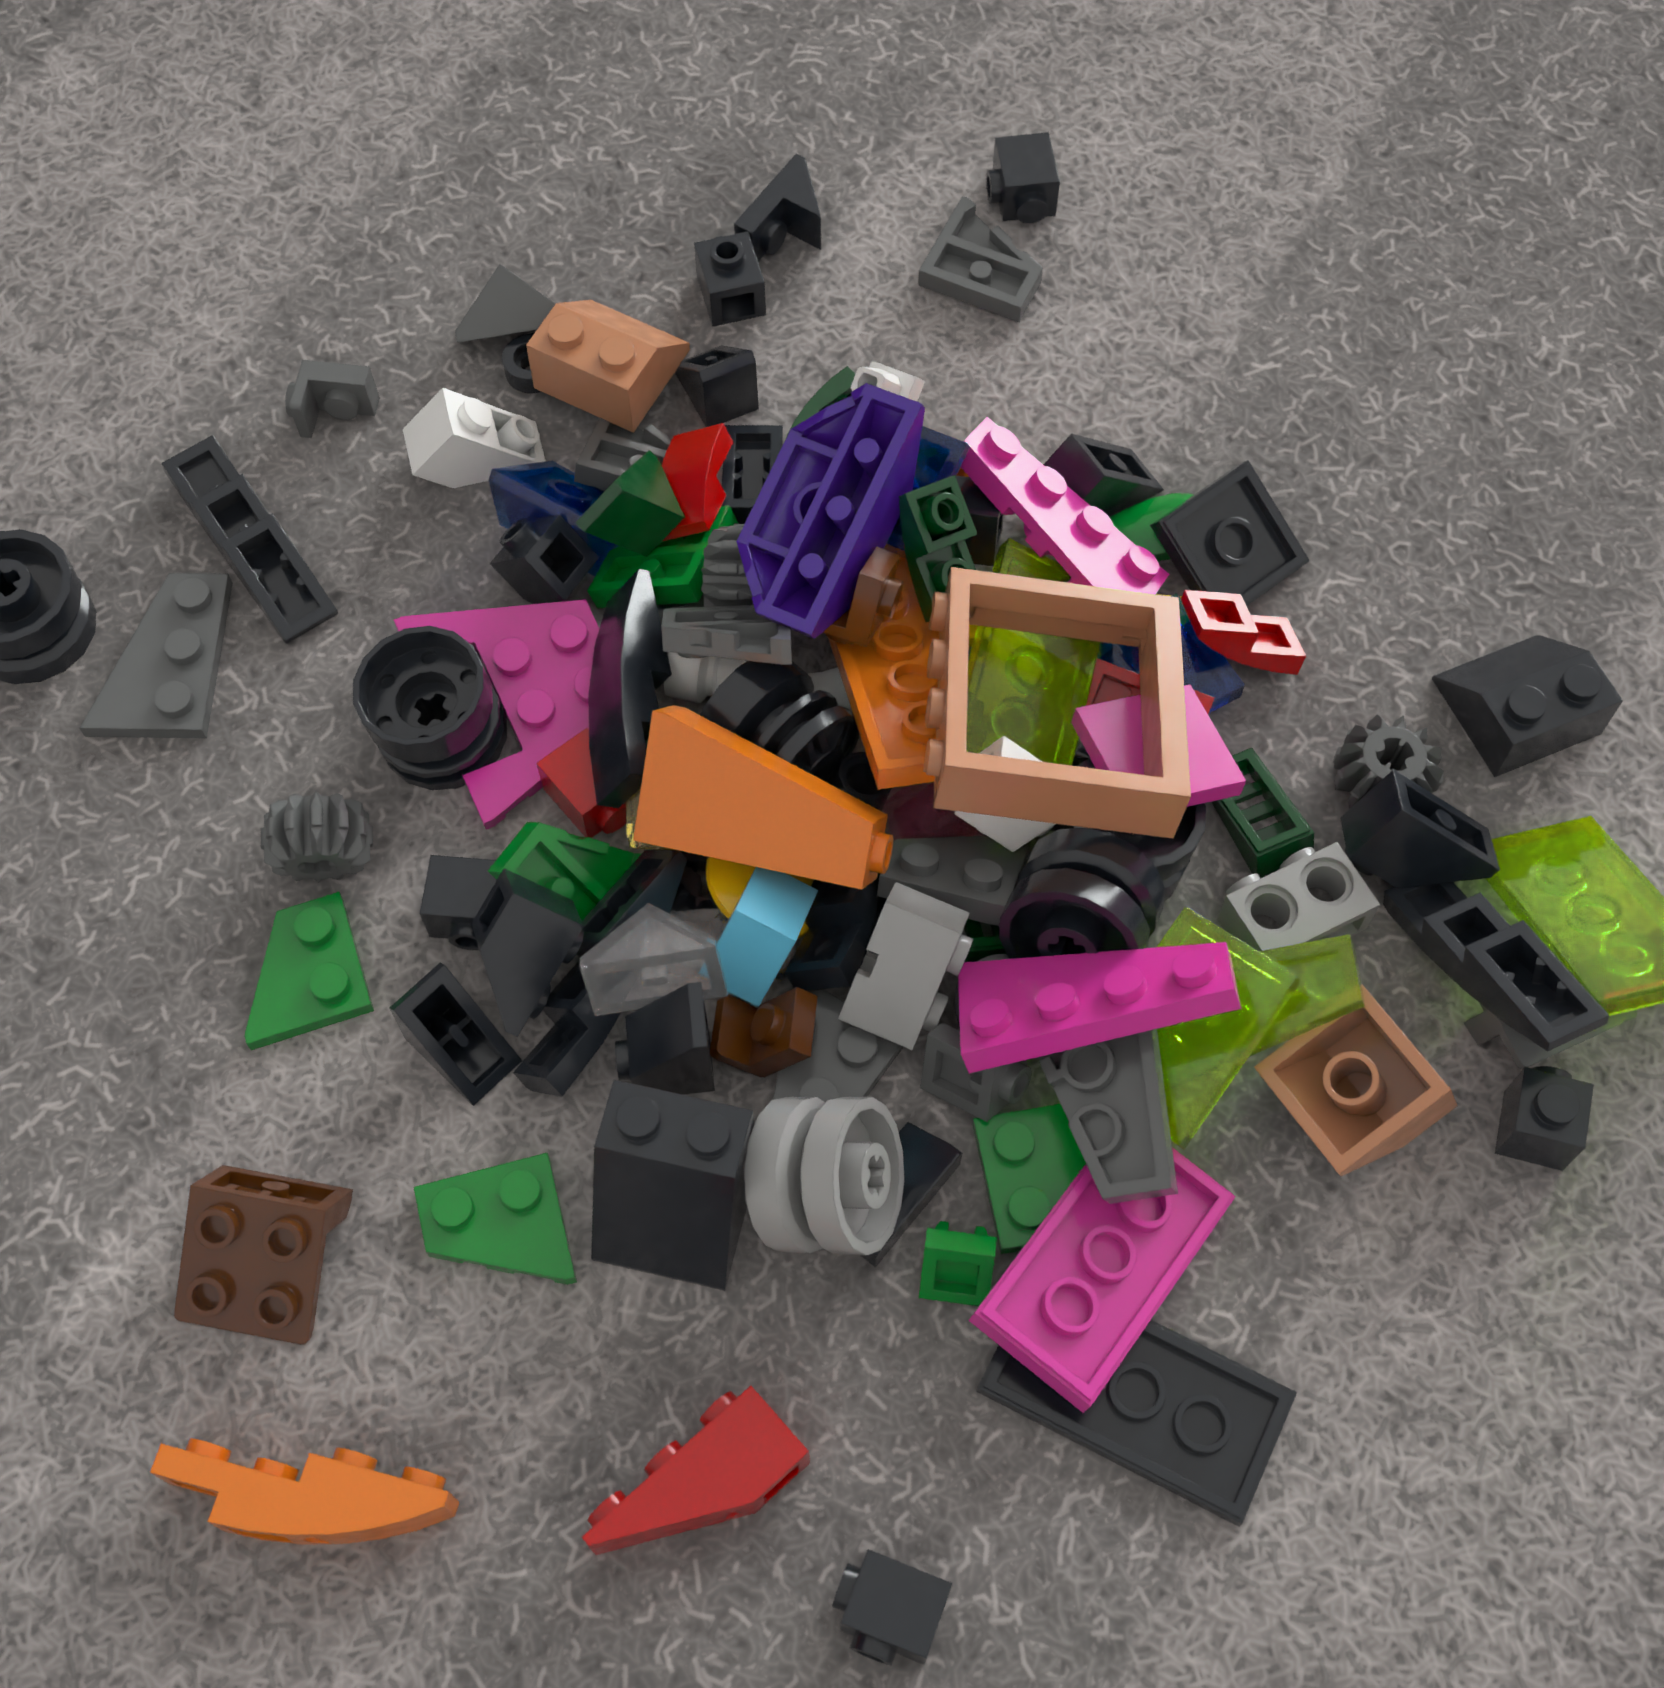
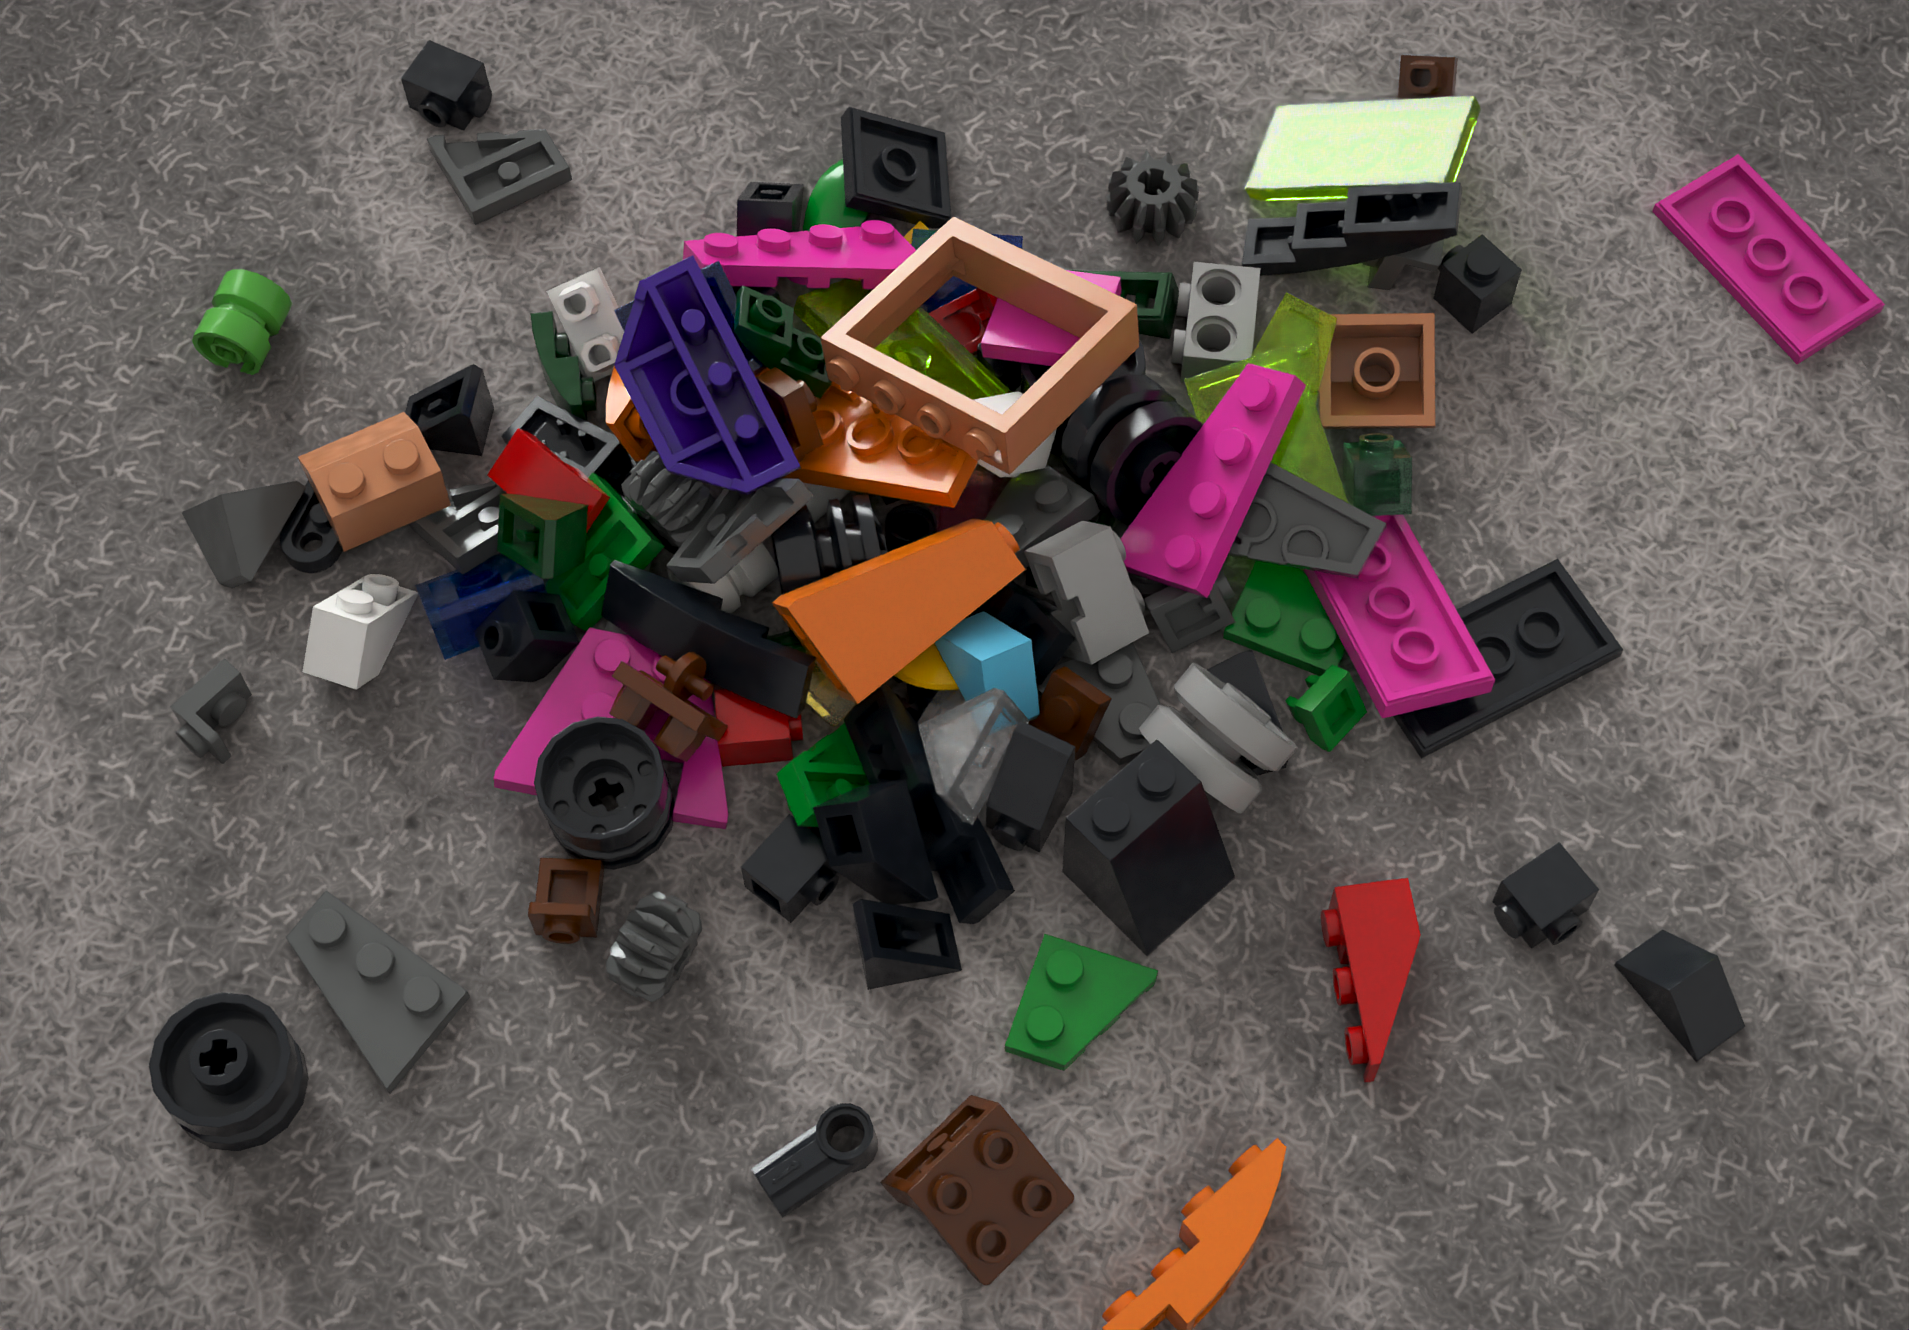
camera: 55 degrees left, 0 degrees up
(205, 1096) = (810, 1161): none -> black piece
(249, 539) = (303, 856): black slope -> none
(308, 974) = (758, 1027): green wing -> none
(328, 749) = (567, 899): none -> reddish brown bracket
(543, 696) = (687, 722): none -> reddish brown hips
(689, 187) = (242, 319): none -> bright green wheel
(730, 278) = (359, 347): black brick -> none
(783, 208) = (329, 263): black slope -> none
(1239, 1154) = (1378, 475): none -> clear green brick
(1252, 640) = (987, 205): red slope -> none
(1415, 837) = (1221, 215): black slope -> none
(1529, 701) = (1162, 78): black slope -> none

